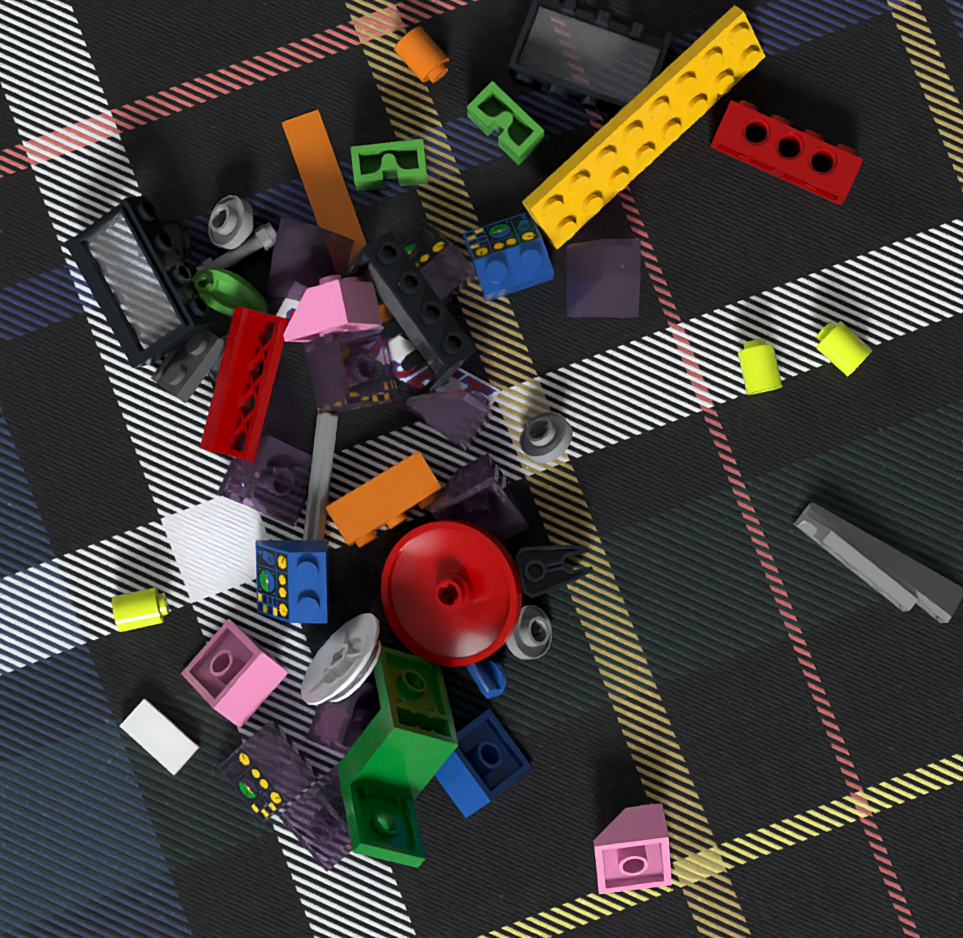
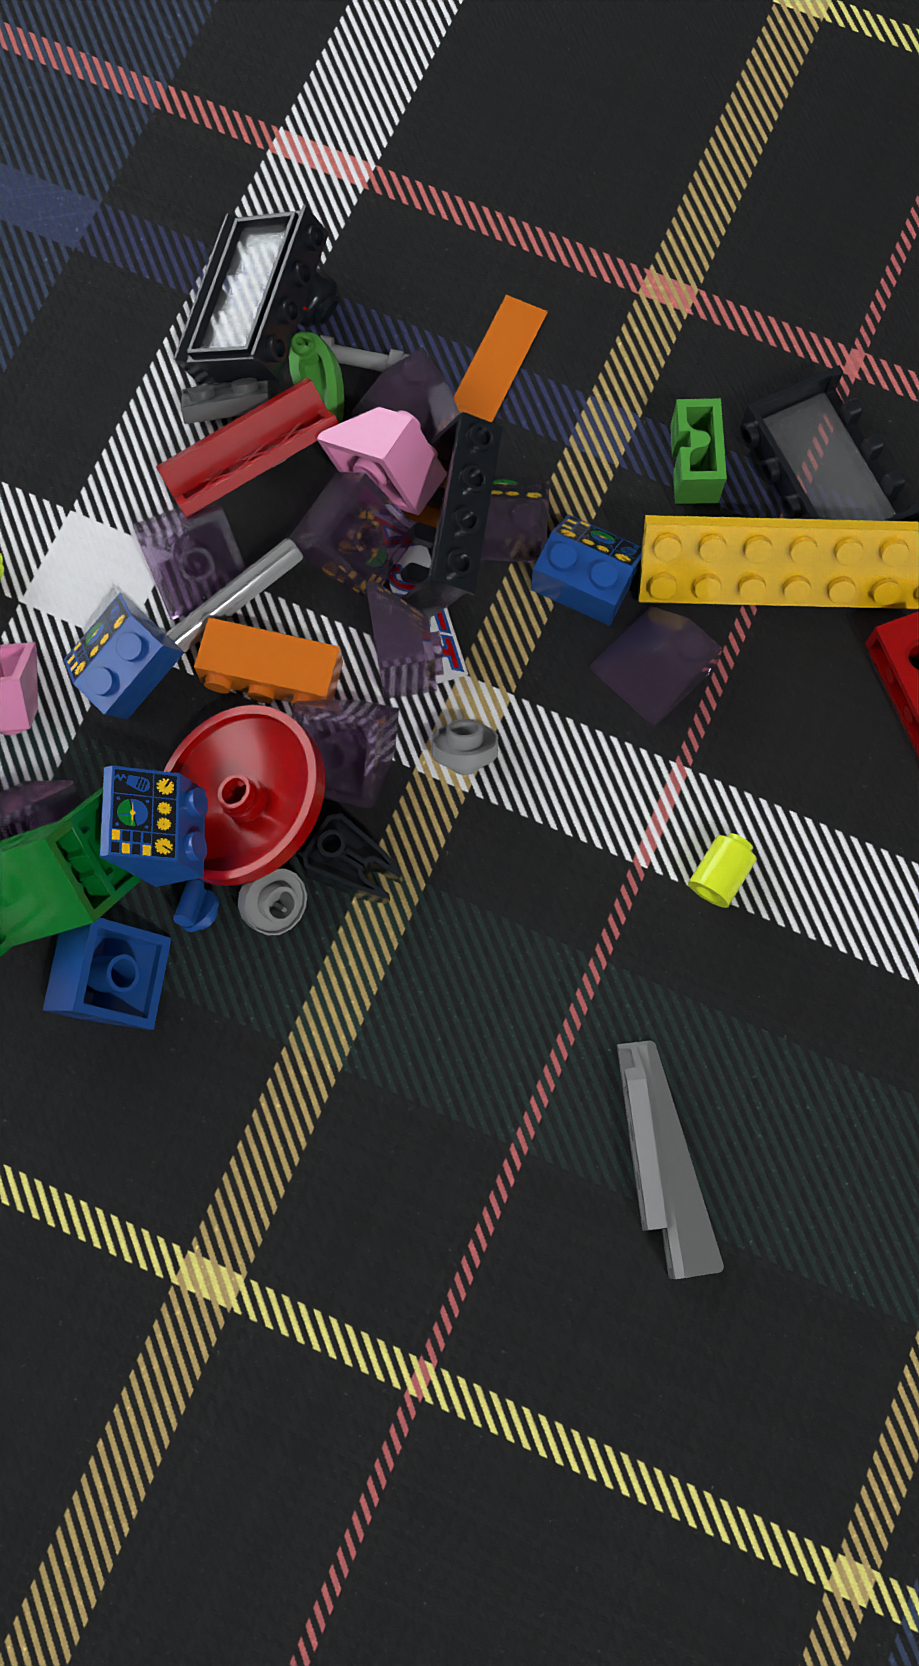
camera: 40 degrees right, 10 degrees down
(230, 222) = (379, 325): light grey plate -> none
(343, 661) = (78, 762): white piece -> none
(389, 160) = (564, 391): bright green brick -> none
(422, 55) = (680, 339): orange brick -> none
(428, 657) = (153, 824): none -> blue slope
(634, 851) = (159, 1198): bright pink slope -> none
(842, 347) = (820, 924): neon yellow brick -> none

